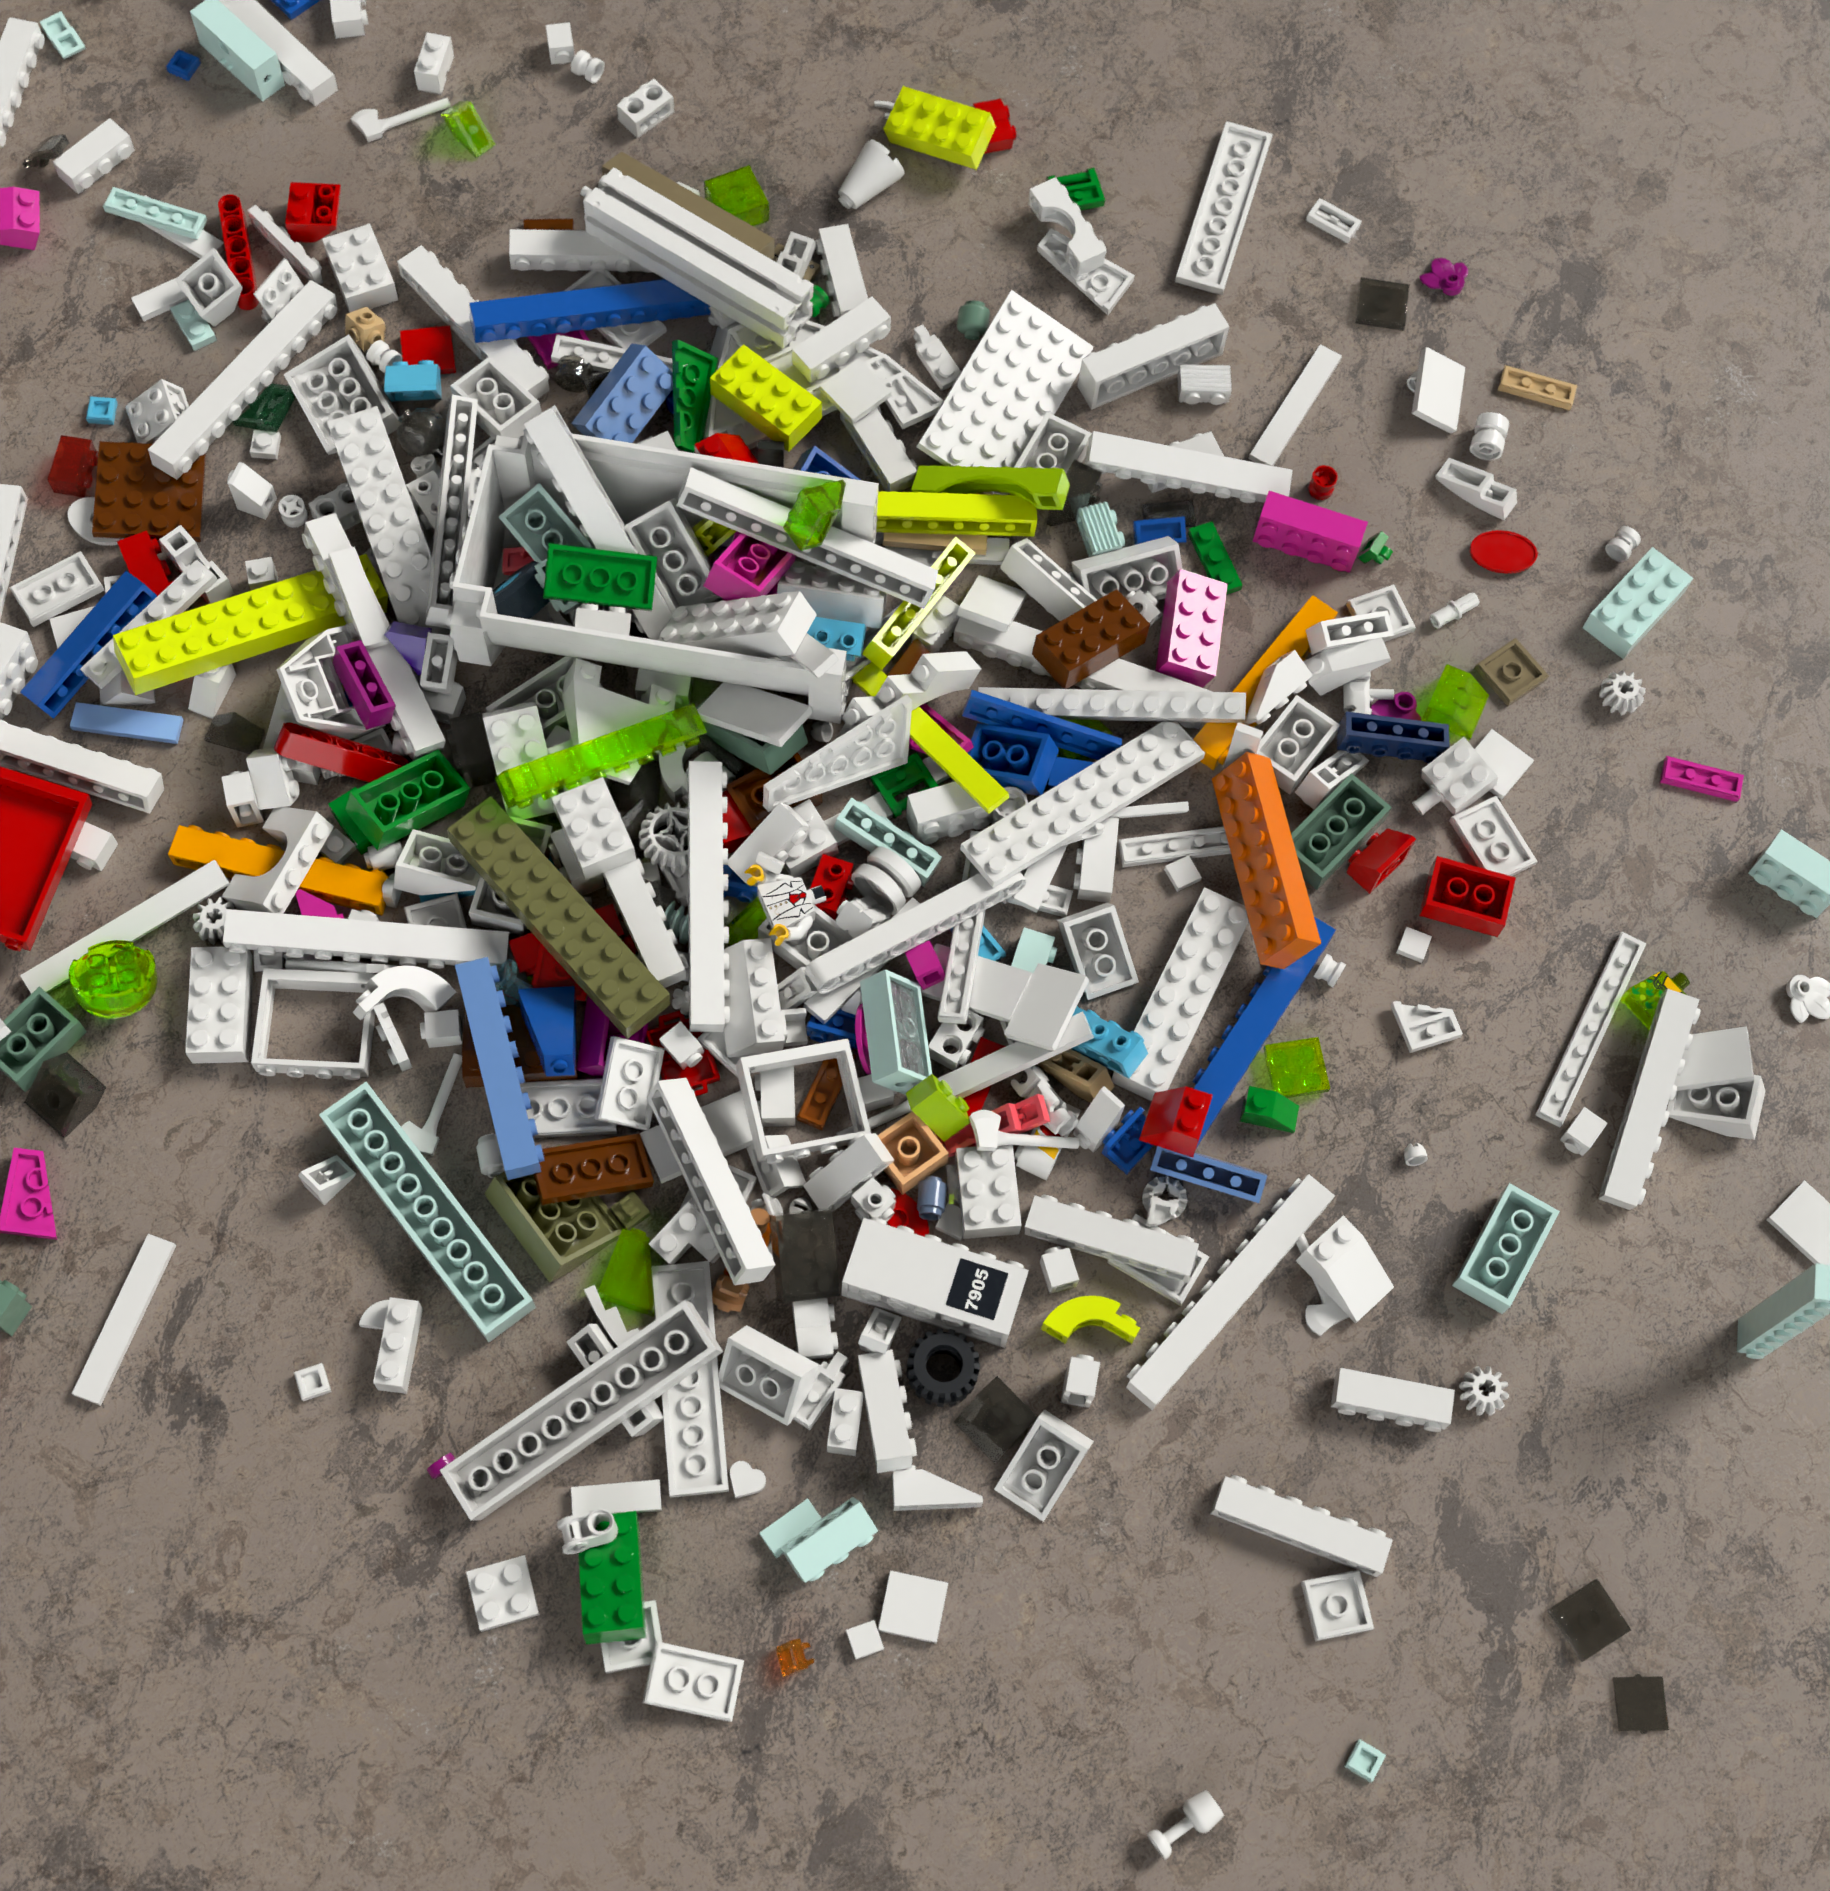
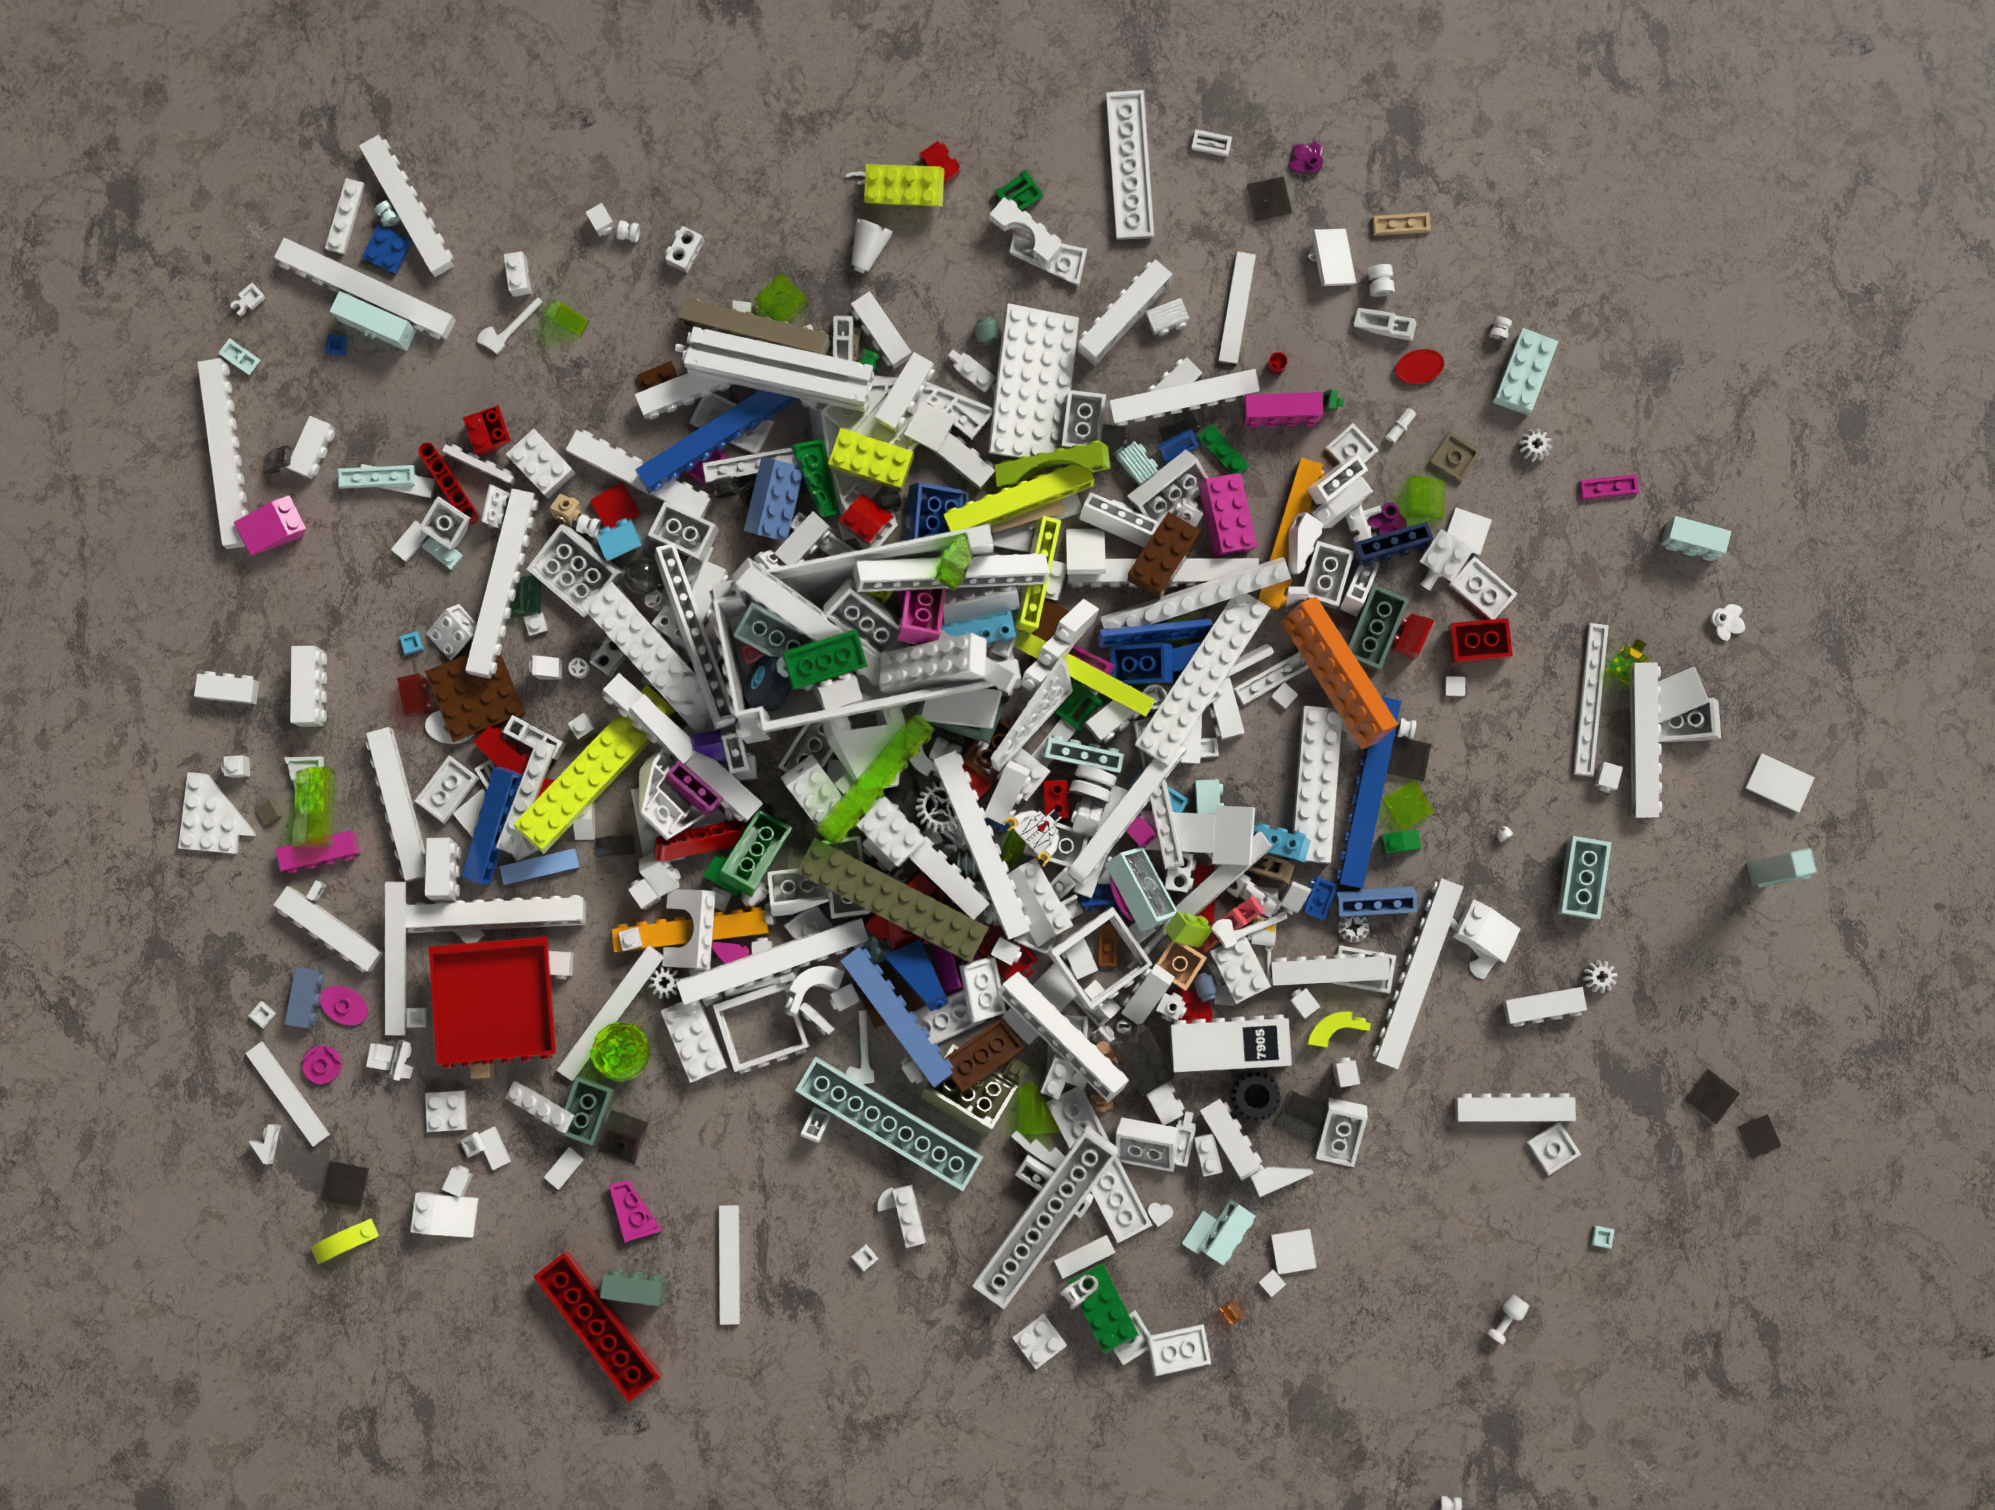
camera: 10 degrees left, 15 degrees up
(196, 844) = (630, 939): none -> white plate
(434, 1469) = (969, 1279): magenta tile -> none
(769, 863) = (1015, 809): white tile -> none
(879, 1331) = (1206, 1088): white slope -> none
(1038, 1182) = (1269, 949): none -> white hinge
(1098, 949) = (1249, 774): white slope -> none
(1160, 1212) = (1355, 940): white tile -> none
(1176, 1119) = (1345, 878): red slope -> none
(1318, 1011) = (1409, 758): none -> clear smoke tile
(1425, 1025) = (1481, 742): white wing -> none

